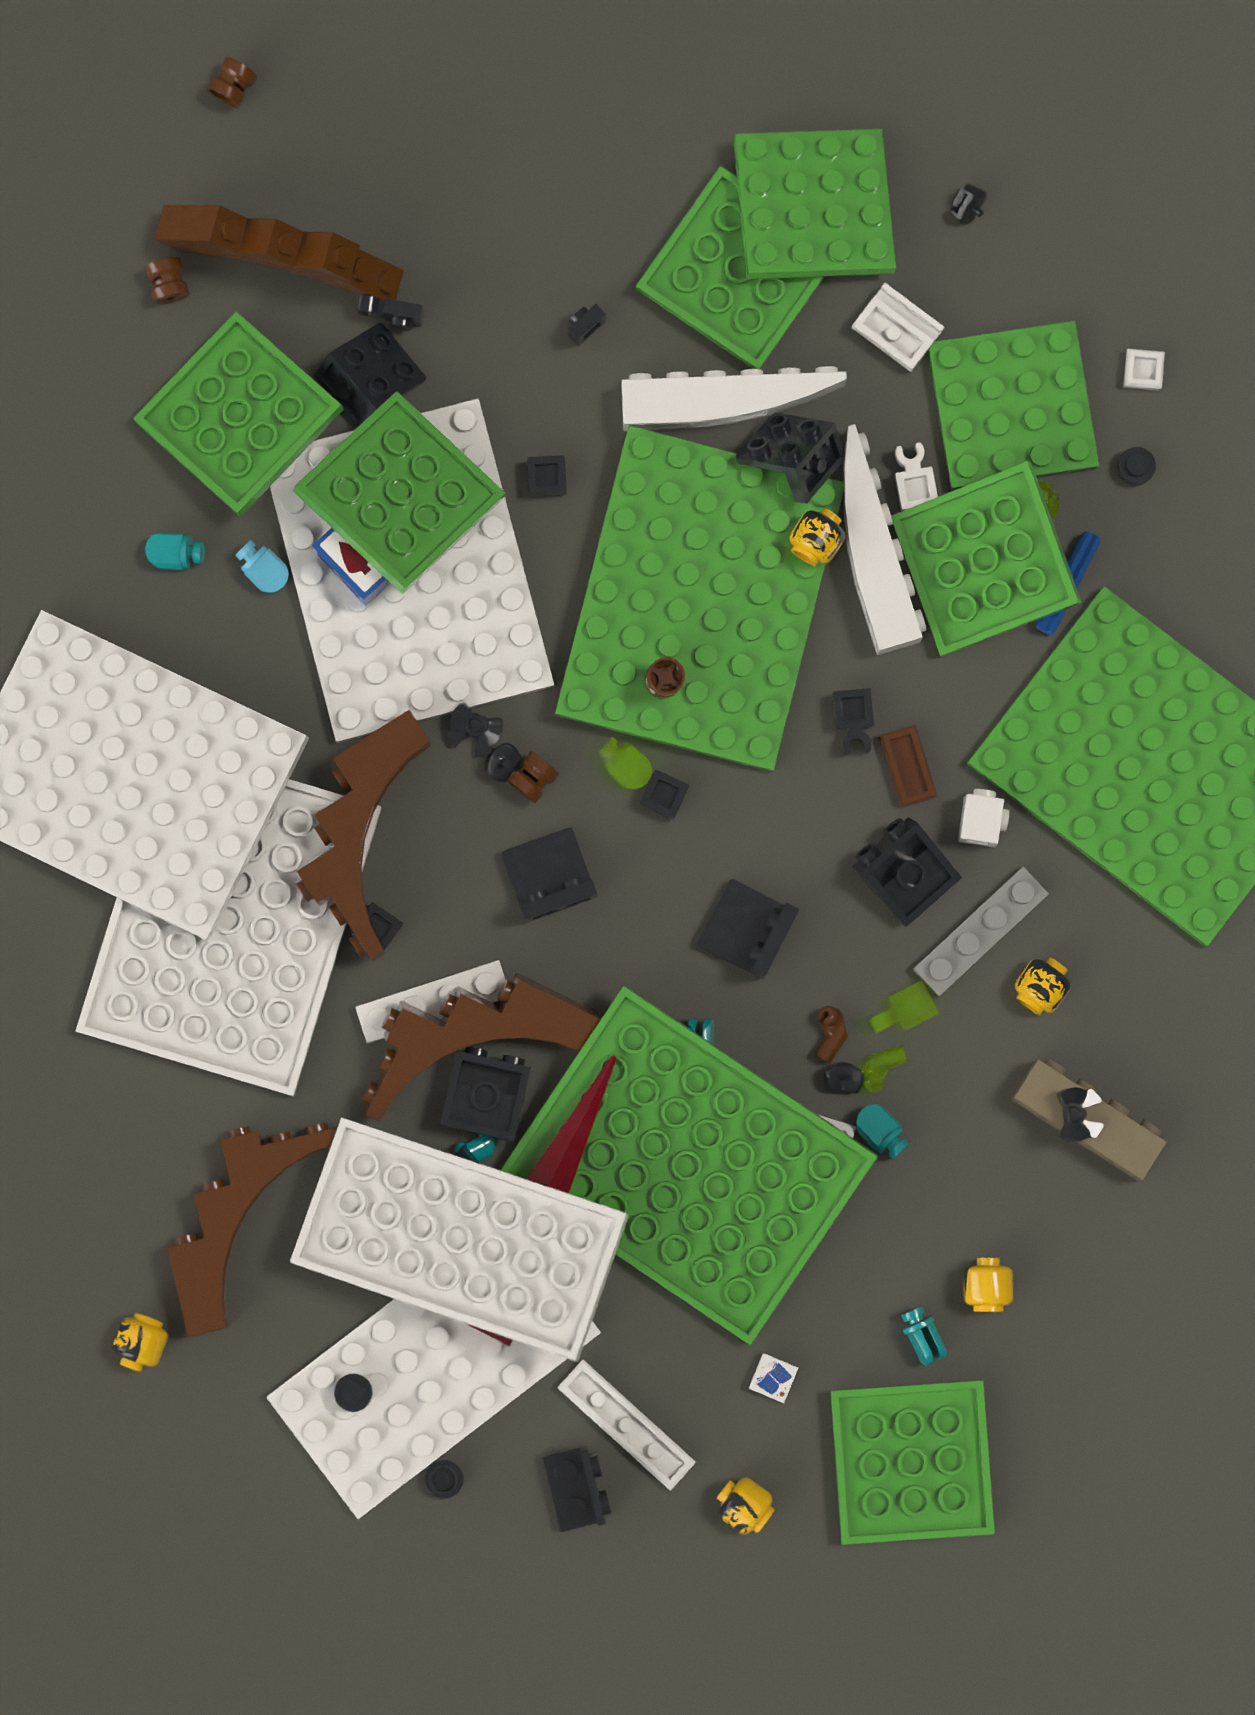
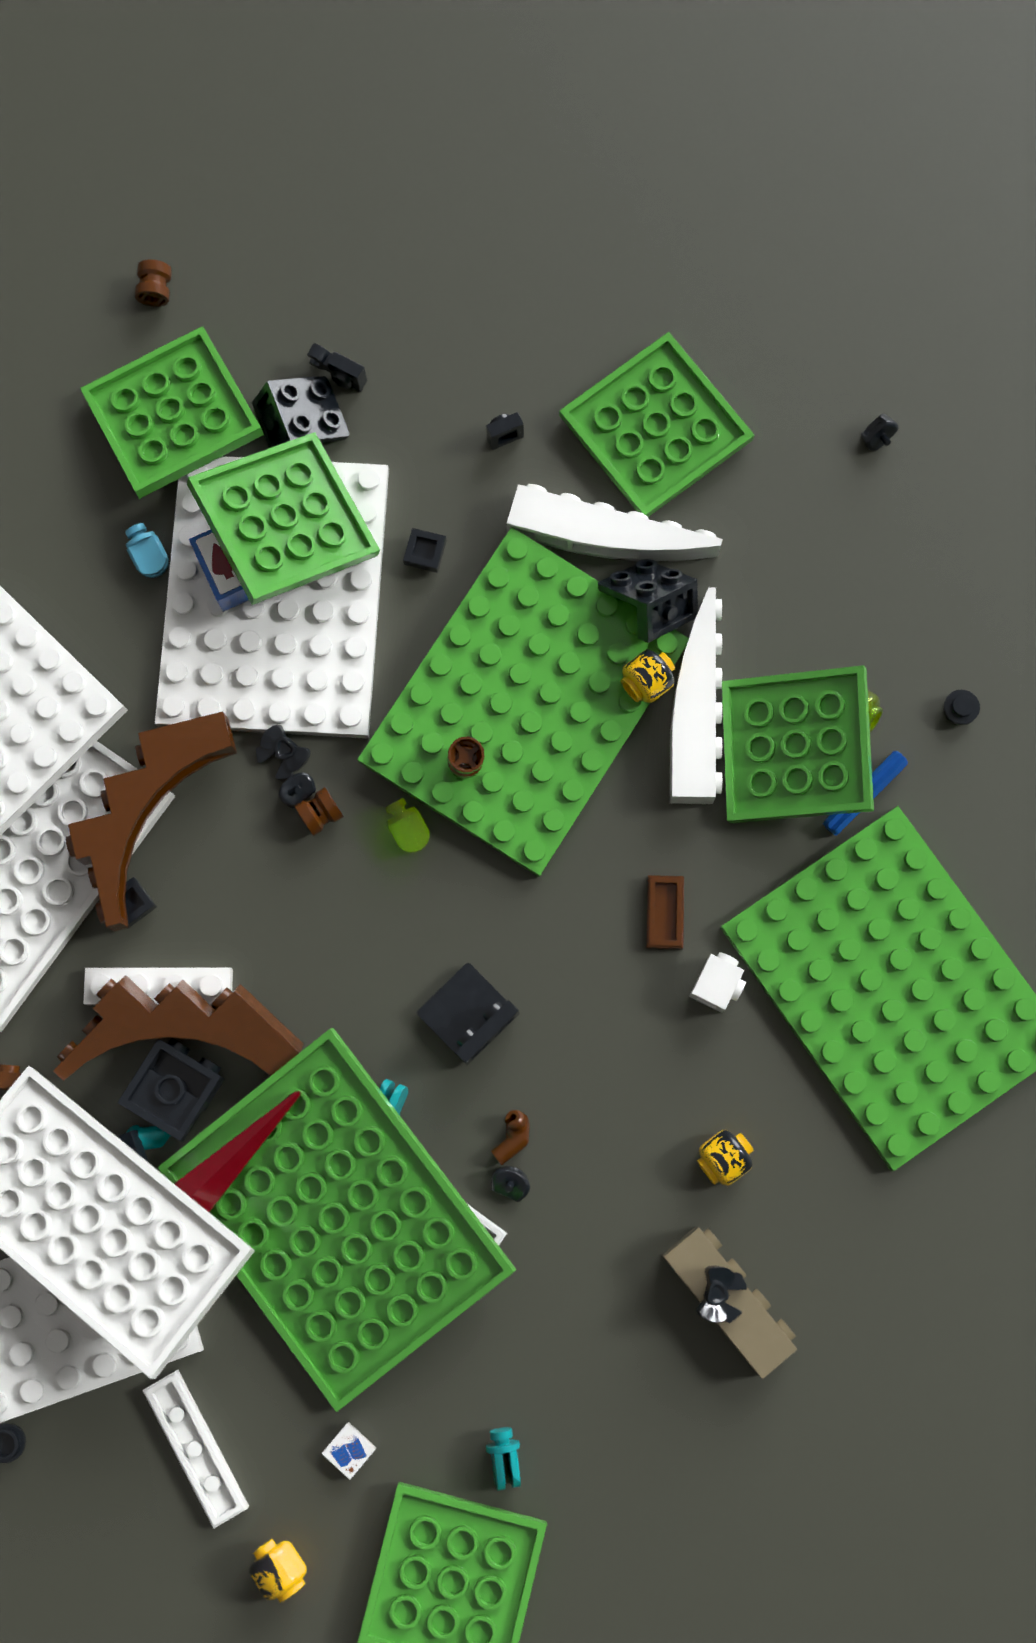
camera: 25 degrees right, 5 degrees down
(174, 551) = (74, 512): teal arm -> none
(232, 82) = (269, 137): reddish brown wheel -> none
(278, 245) = (286, 291): reddish brown arch -> none
(549, 874) = (302, 905): black bracket -> none
(575, 1488) = (125, 1496): black bracket -> none
(664, 794) = (433, 865): black plate -> none
(814, 203) = (741, 388): bright green plate -> none
(854, 713) = (630, 848): black plate -> none
(878, 1065) = (546, 1182): clear neon green arm -> none
(881, 1130) = (529, 1245): teal arm -> none
(897, 327) = (781, 518): white plate -> none
(906, 870) = (632, 1007): black plate -> none
(908, 1008) = (594, 1137): clear neon green plate -> none
(915, 483) = (753, 659): white plate -> none
(980, 931) = (683, 1087): light grey plate -> none
(988, 1285) = (581, 1431): yellow head -> none
(1013, 402) = (866, 612): bright green plate -> none
(1143, 369) = (993, 625): white tile -> none

